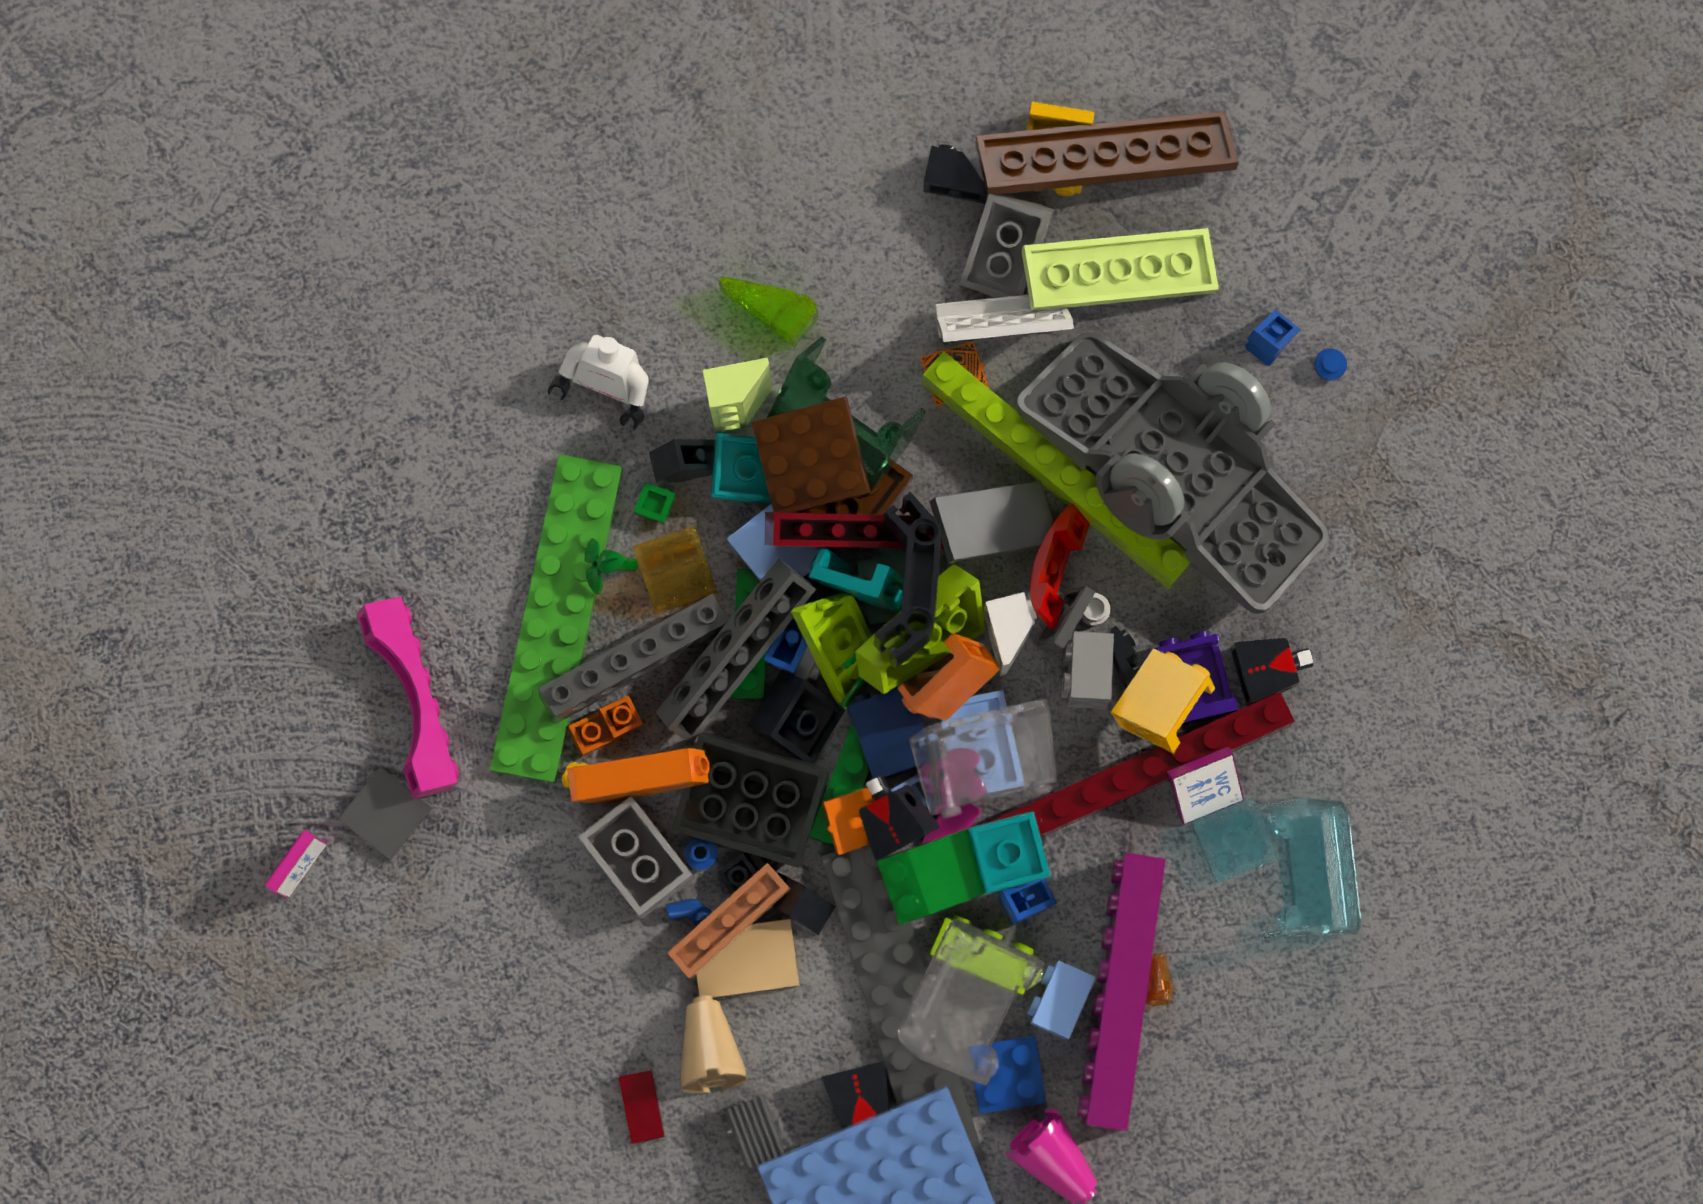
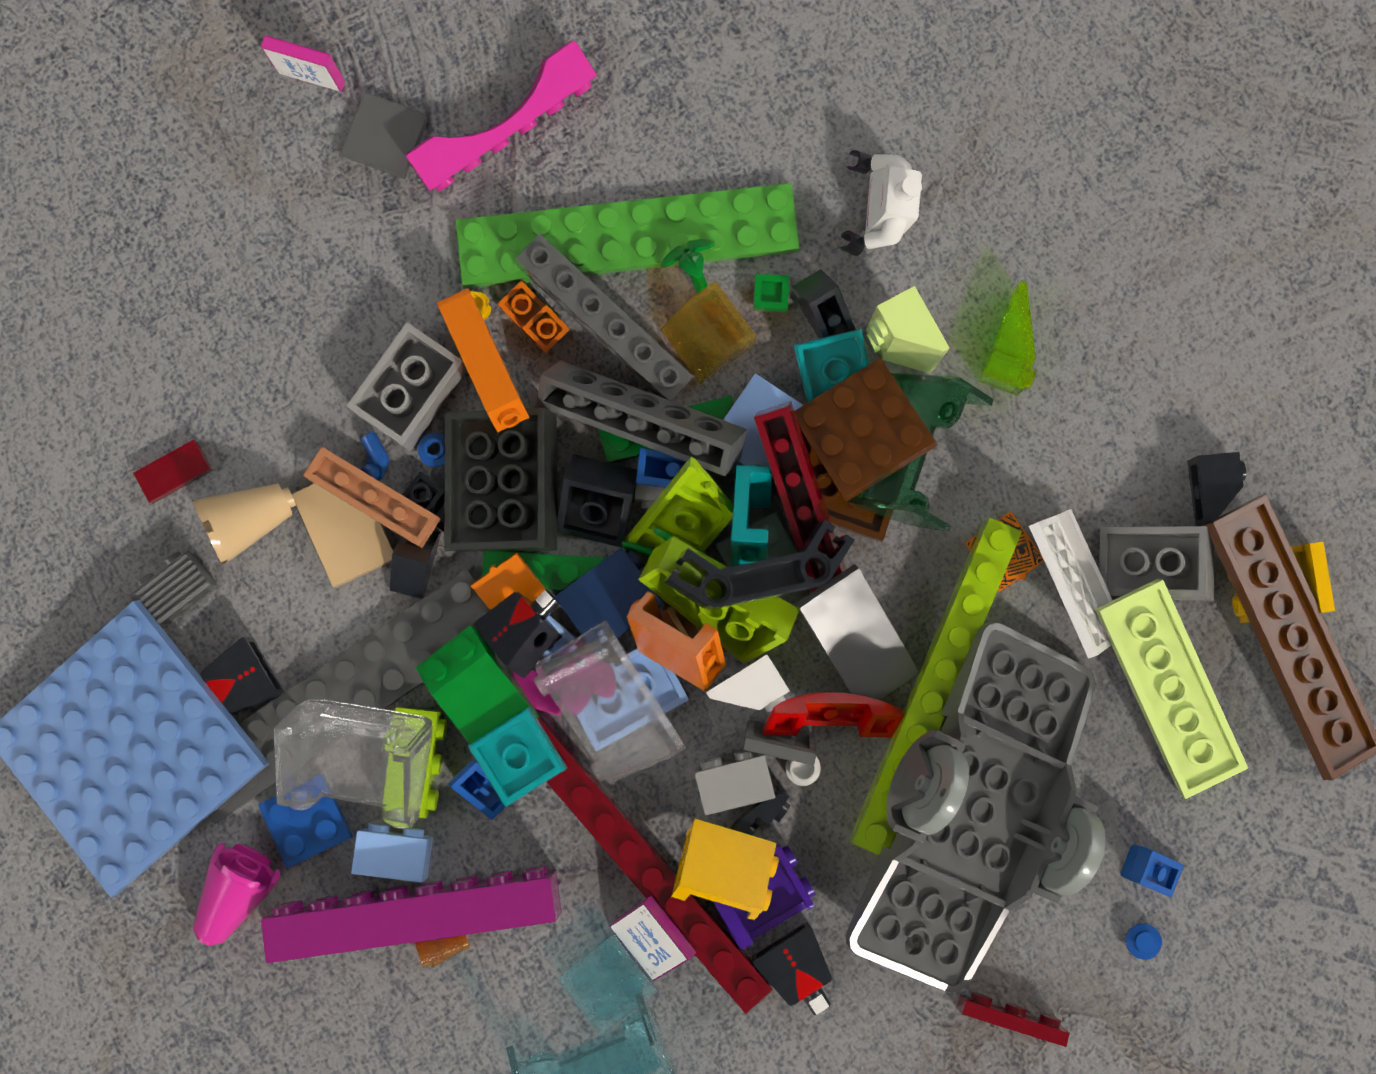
camera: 75 degrees right, 5 degrees up
(1364, 495) = (1013, 1018): none -> dark red plate

